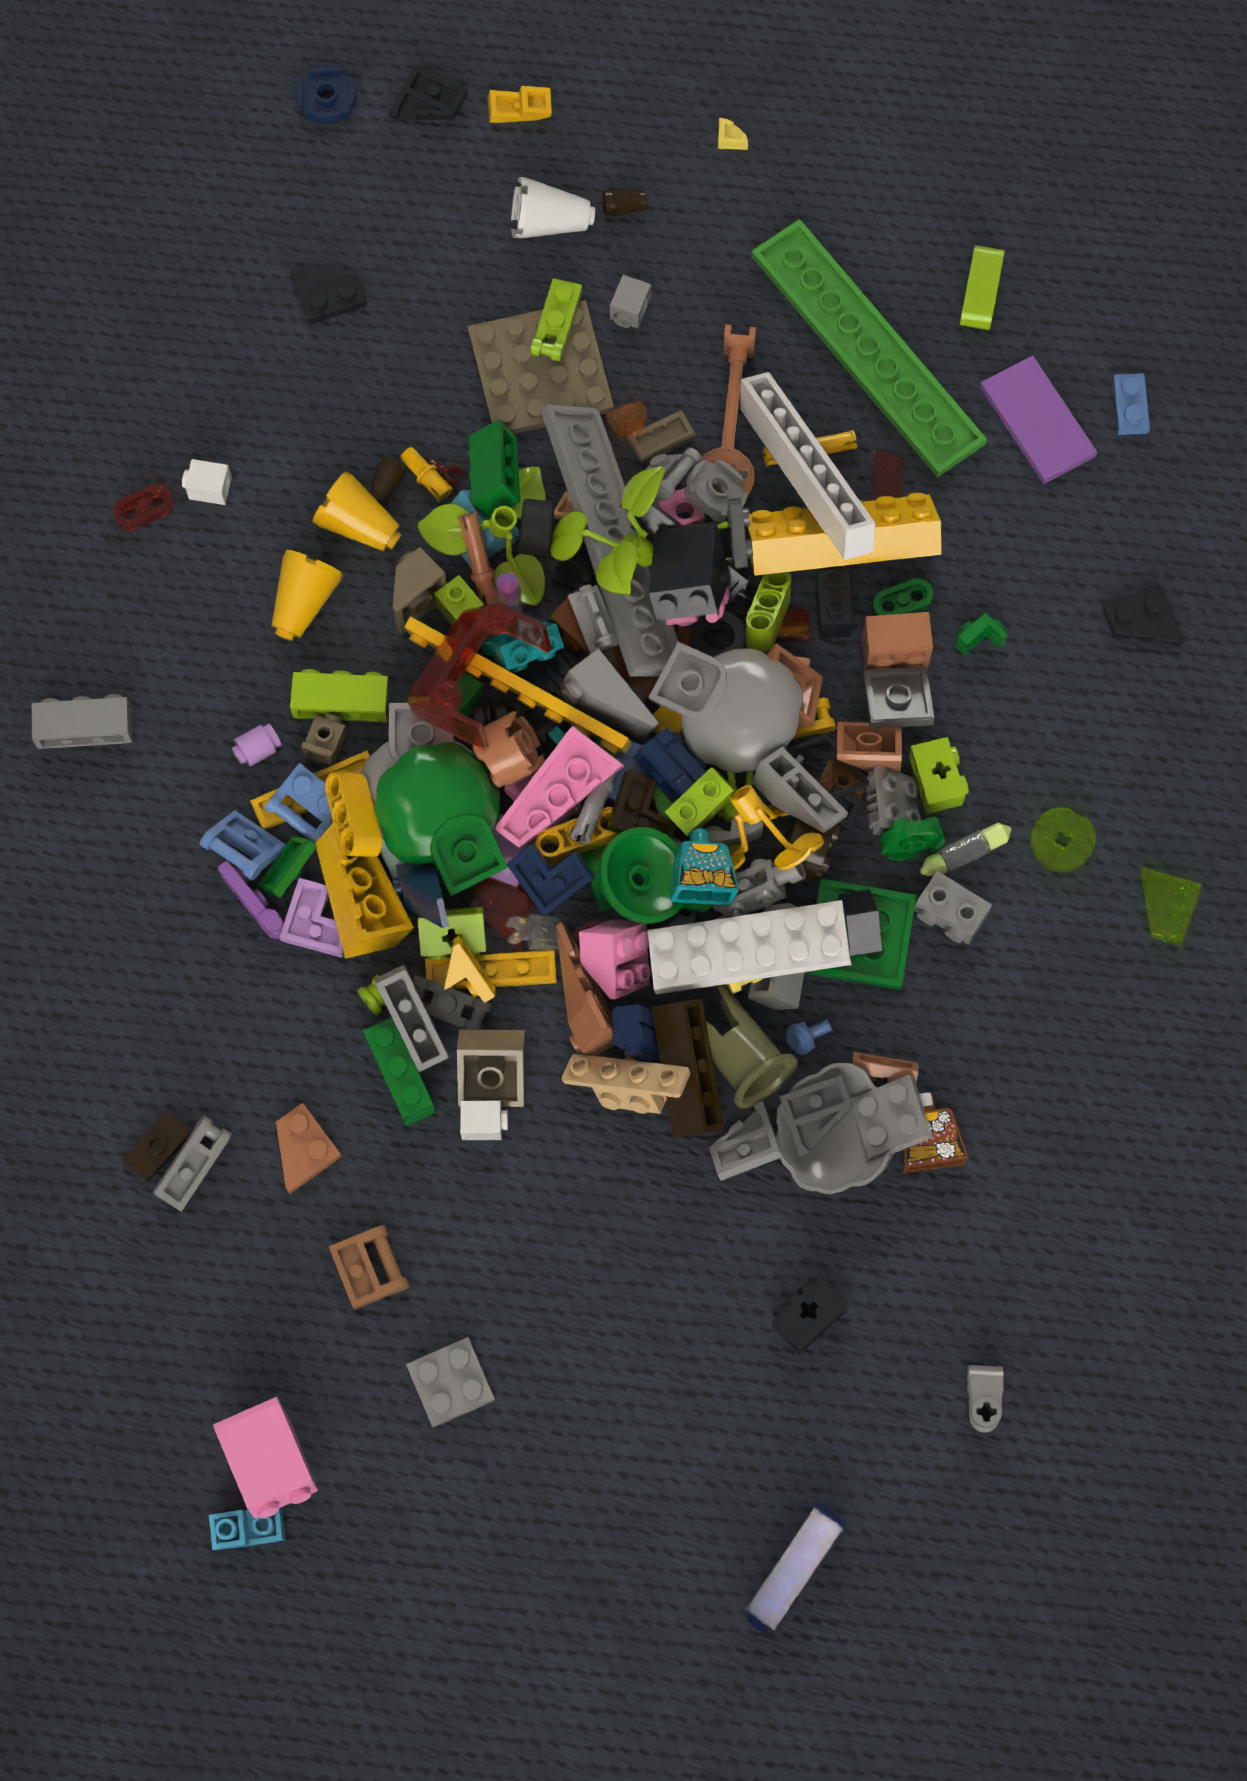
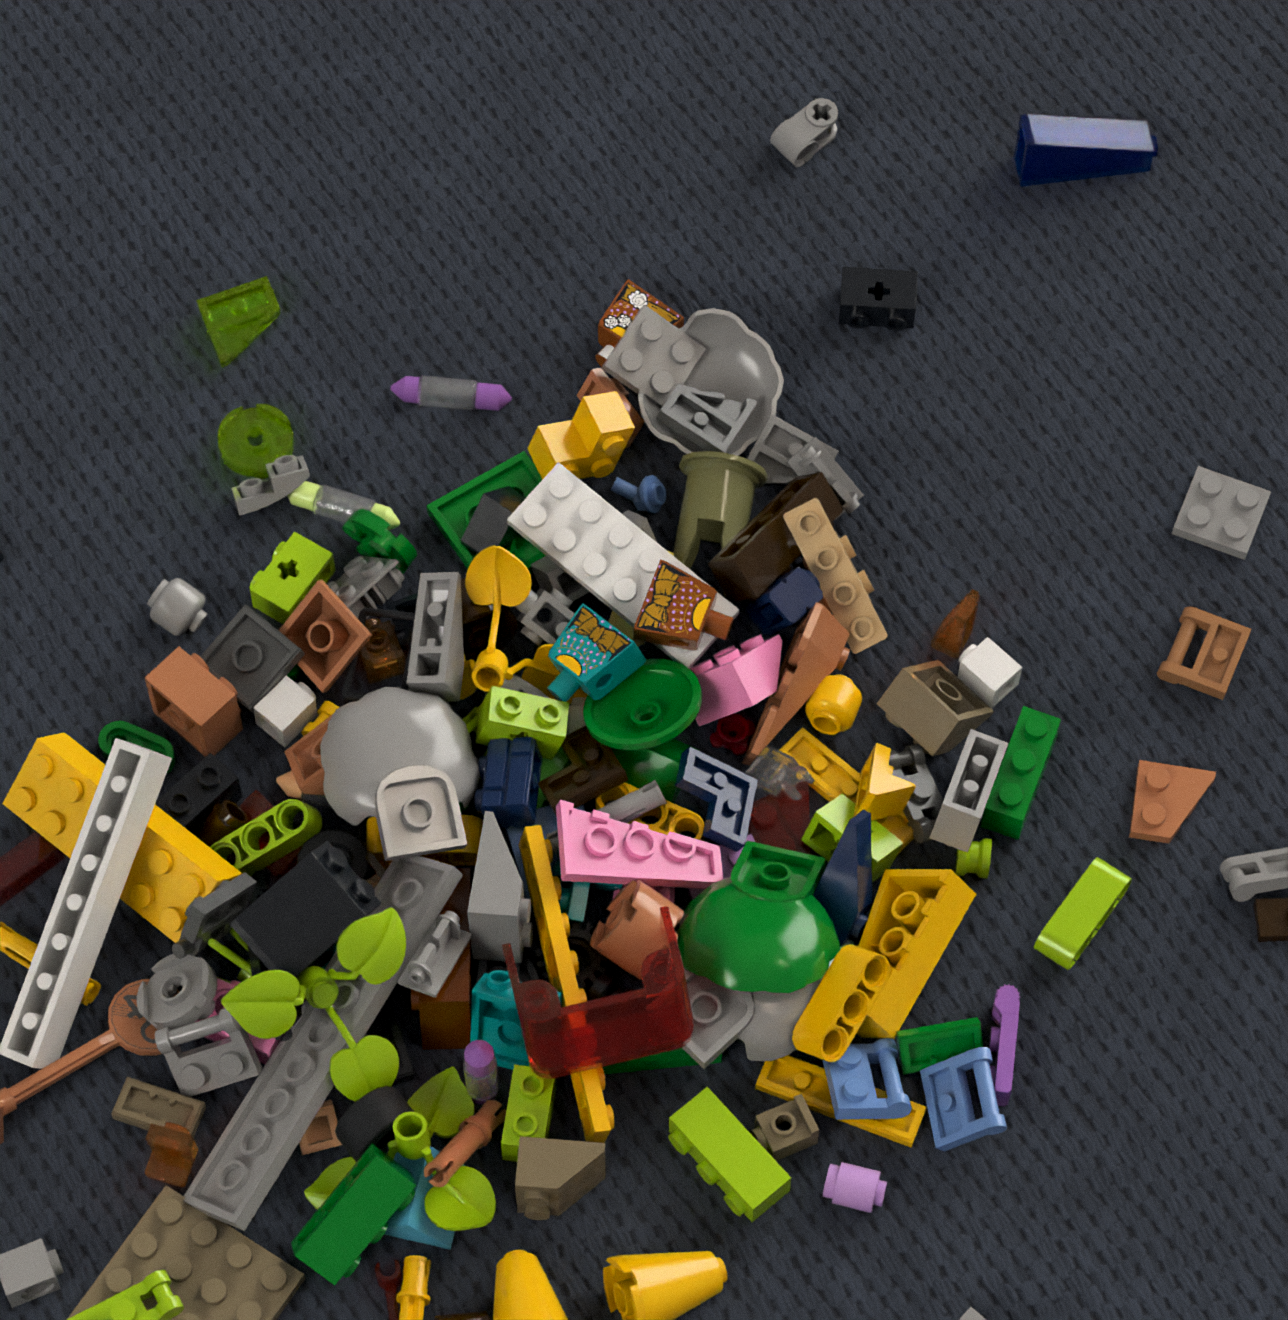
camera: 135 degrees left, 10 degrees down
(281, 1023) = (1081, 912): none -> lime beam
(305, 923) = (972, 979): lavender plate -> none
(529, 1126) = (957, 626): none -> clear orange slope
(548, 1007) = (834, 705): none -> yellow head
(679, 940) = (679, 611): none -> torso
(704, 1148) = (815, 459): none -> light grey hinge
(802, 599) = (221, 822): none -> dark brown cone
(848, 698) = (286, 710): none -> white brick
(870, 1014) = (588, 442): none -> yellow brick
(952, 908) = (410, 469): light grey brick -> none
(972, 633) = (111, 659): green bracket -> none
(979, 696) = (177, 606): none -> light grey head
(989, 984) = (451, 393): none -> piece
(1015, 816) = (283, 478): none -> light grey slope

